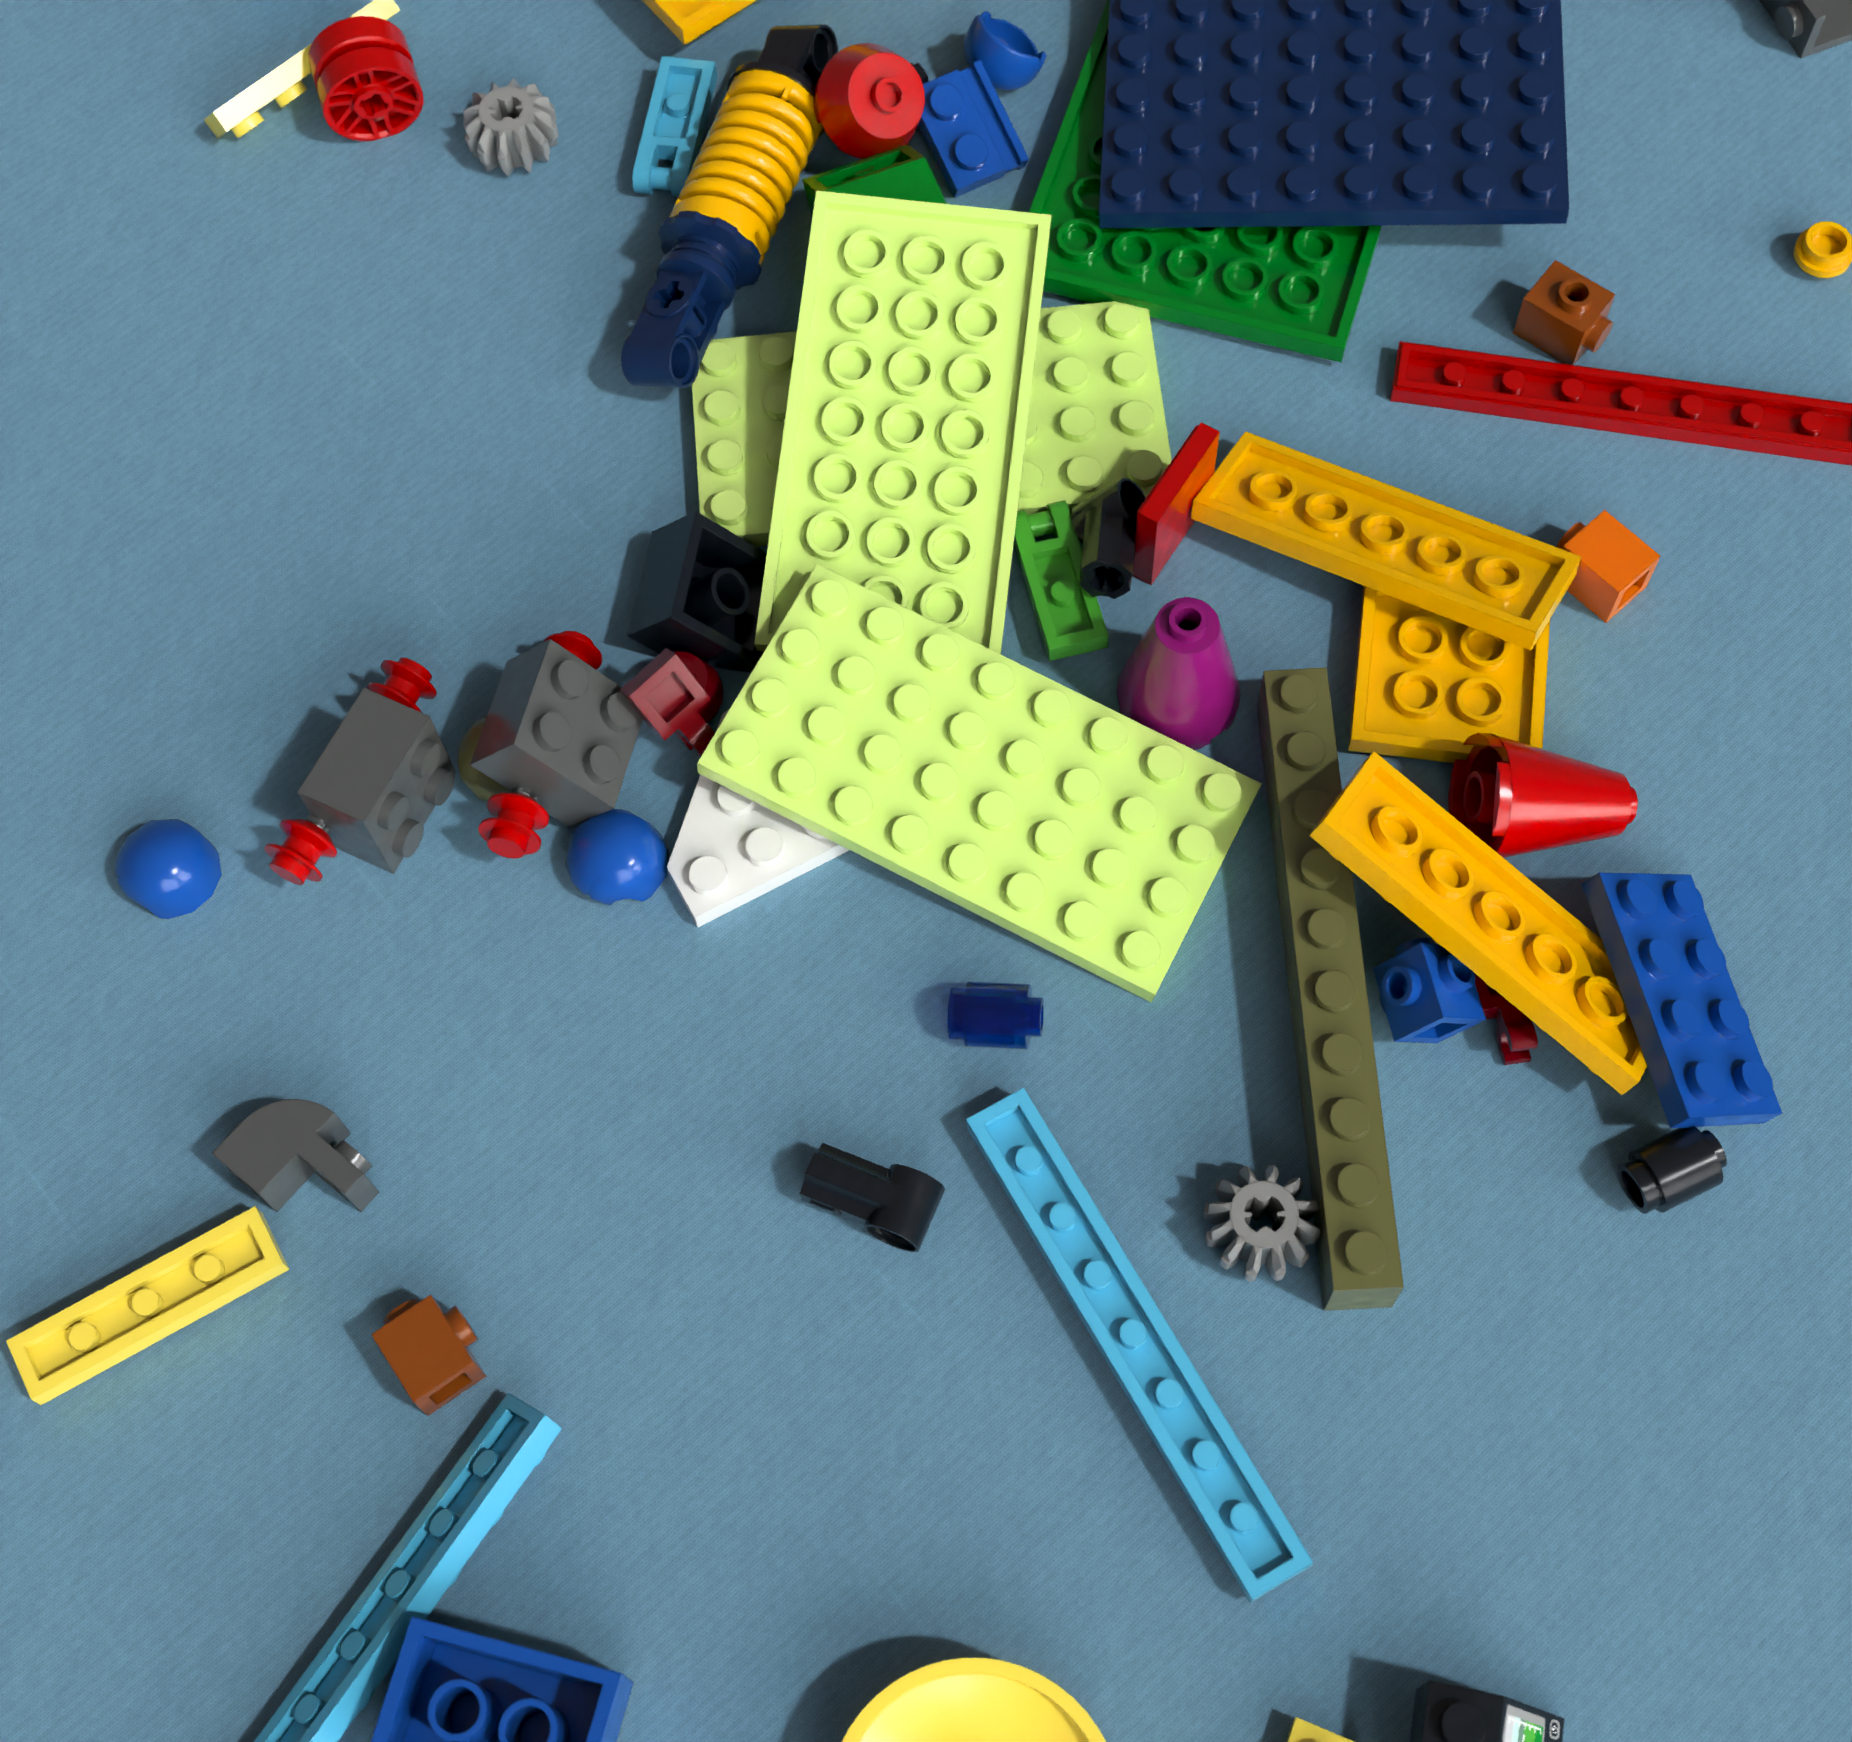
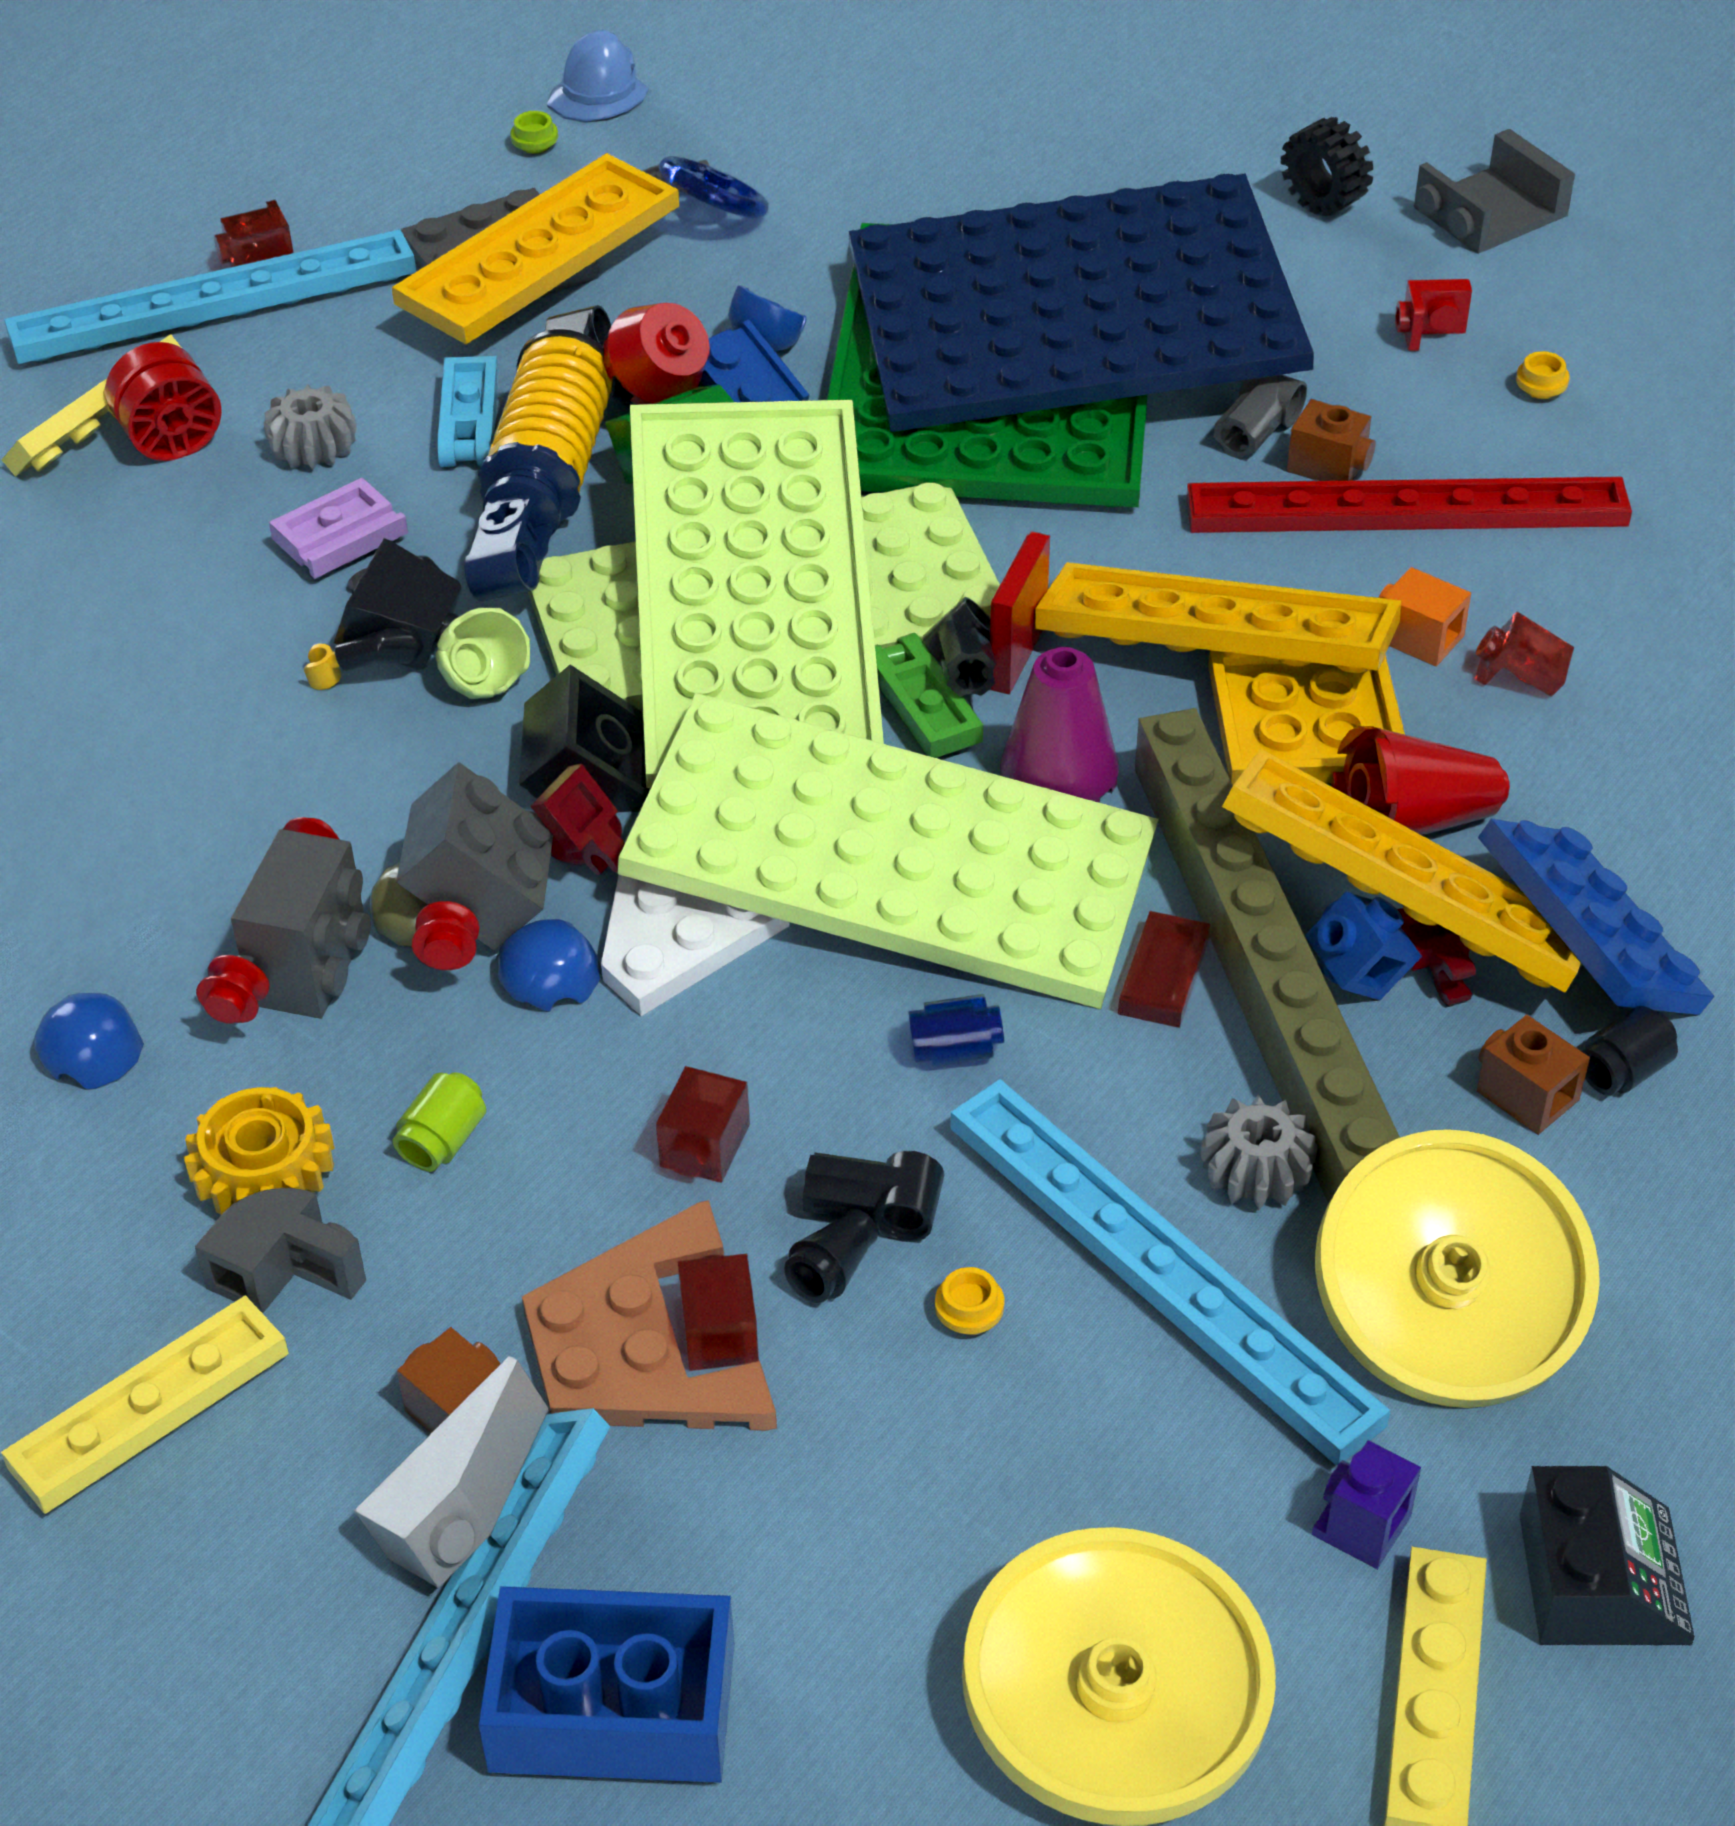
camera: 15 degrees left, 20 degrees down
(280, 1011) = (258, 1144): none -> yellow gear
(405, 1467) = (458, 1478): none -> light grey slope
(475, 1030) = (439, 1120): none -> lime brick
(516, 264) = (338, 527): none -> lavender plate
(546, 396) = (390, 618): none -> black torso
(587, 1314) = (611, 1344): none -> nougat wing
(622, 461) = (483, 652): none -> yellowish green hair
(691, 1308) = (718, 1311): none -> clear red brick
(722, 1086) = (703, 1124): none -> clear red brick
(814, 1264) = (828, 1258): none -> black cone
(937, 1341) = (969, 1301): none -> yellow plate
(1225, 969) = (1164, 969): none -> clear red tile
(1263, 1664) = (1368, 1503): none -> dark purple brick
(1421, 1416) = (1457, 1268): none -> light yellow dish
(1497, 260) = (1258, 411): none -> dark grey piece
(1562, 1178) = (1531, 1073): none -> dark orange brick
(1701, 634) = (1527, 652): none -> clear red bracket
(1726, 140) = (1433, 308): none -> red bracket

